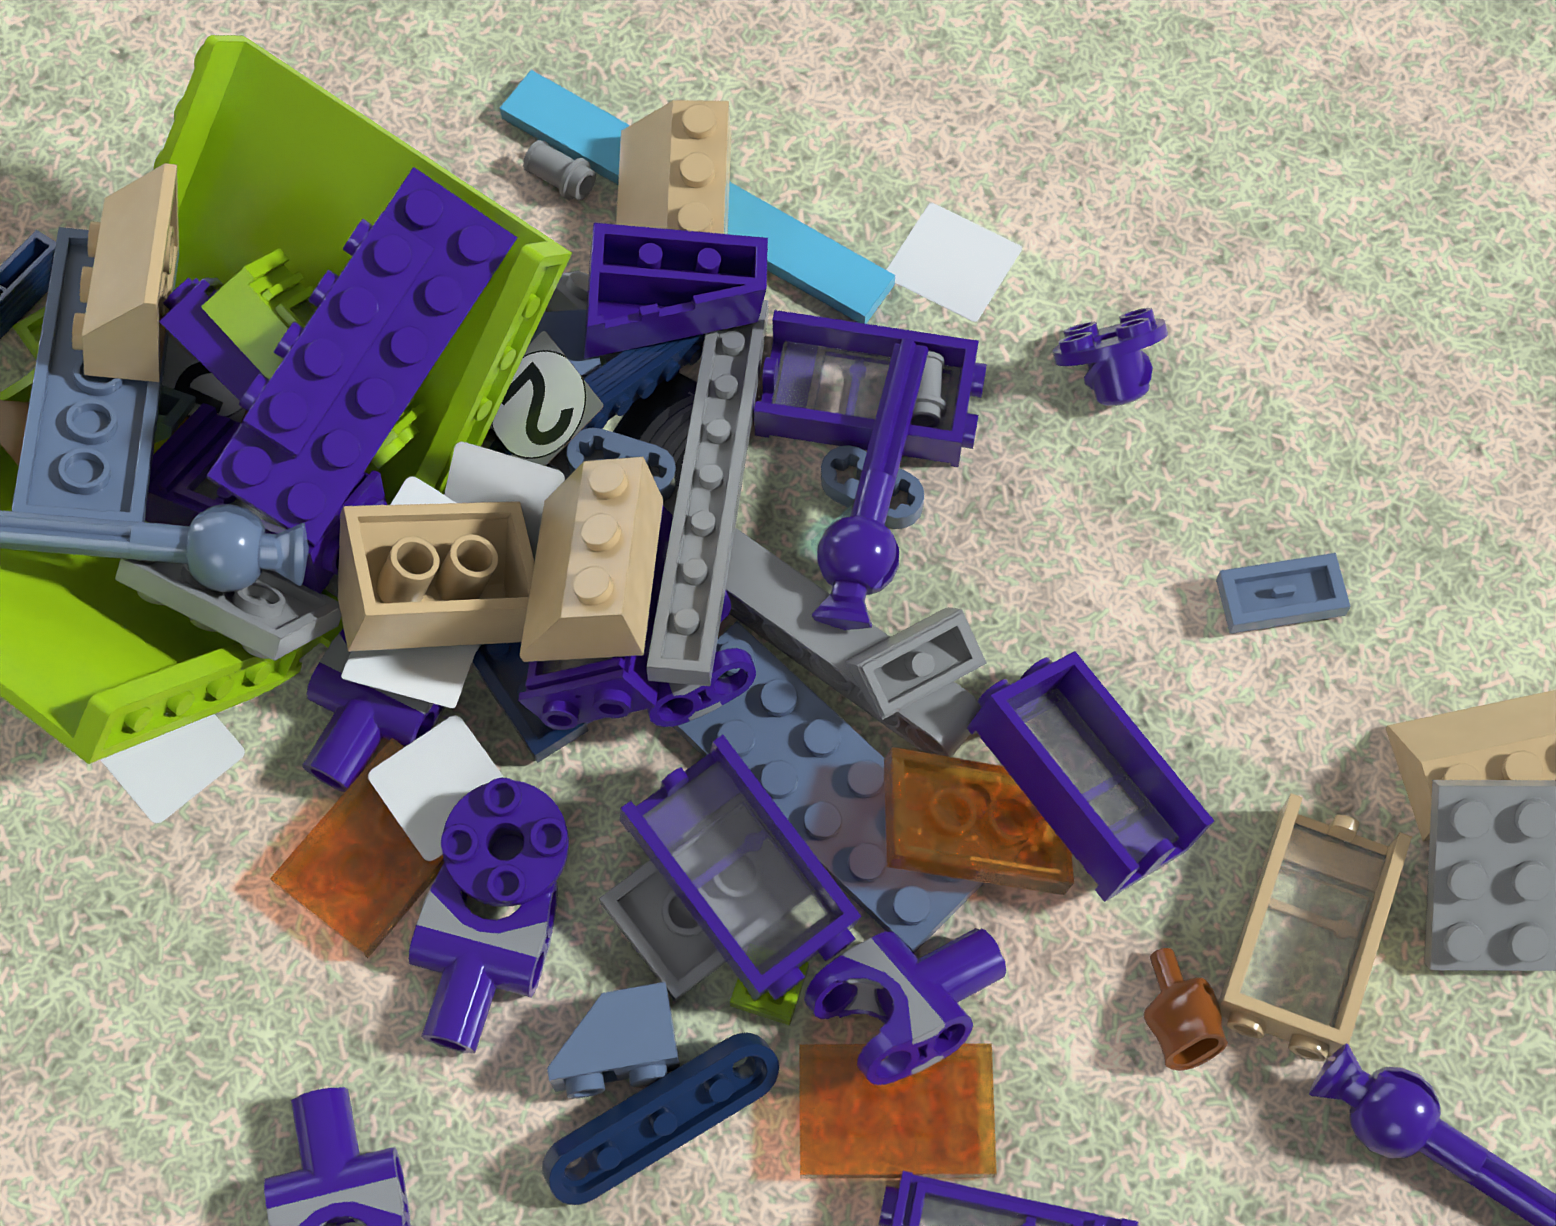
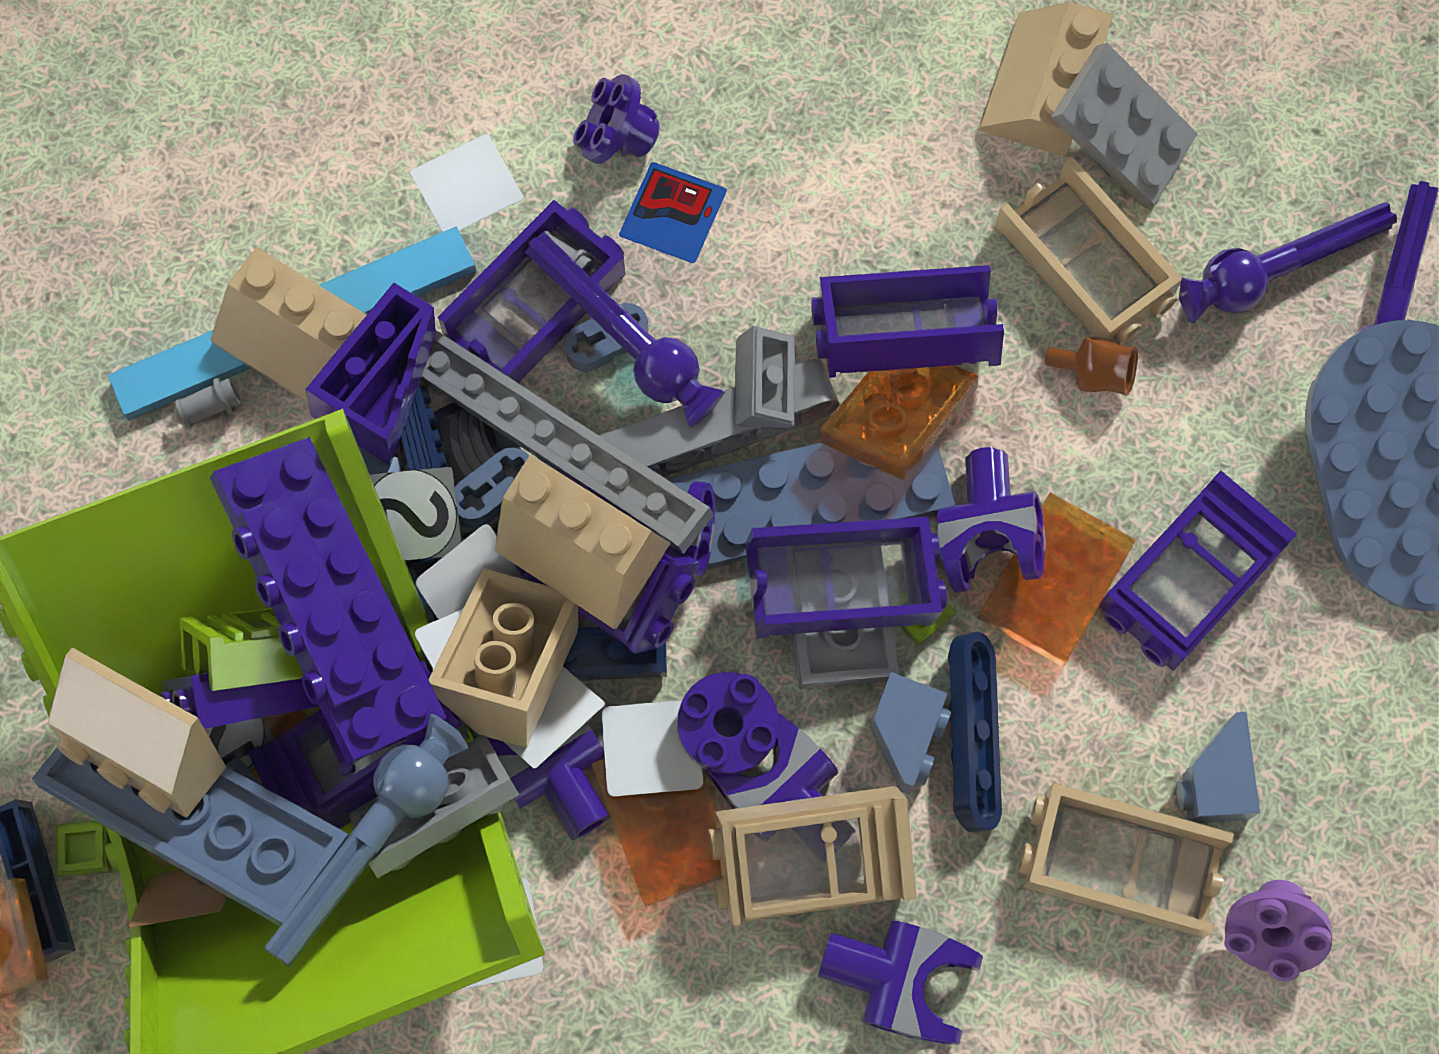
camera: 60 degrees left, 5 degrees up
(411, 1014) = (813, 854): none -> tan door
(1061, 472) = (673, 212): none -> sticker
(1282, 593) = (853, 130): sand blue plate -> none

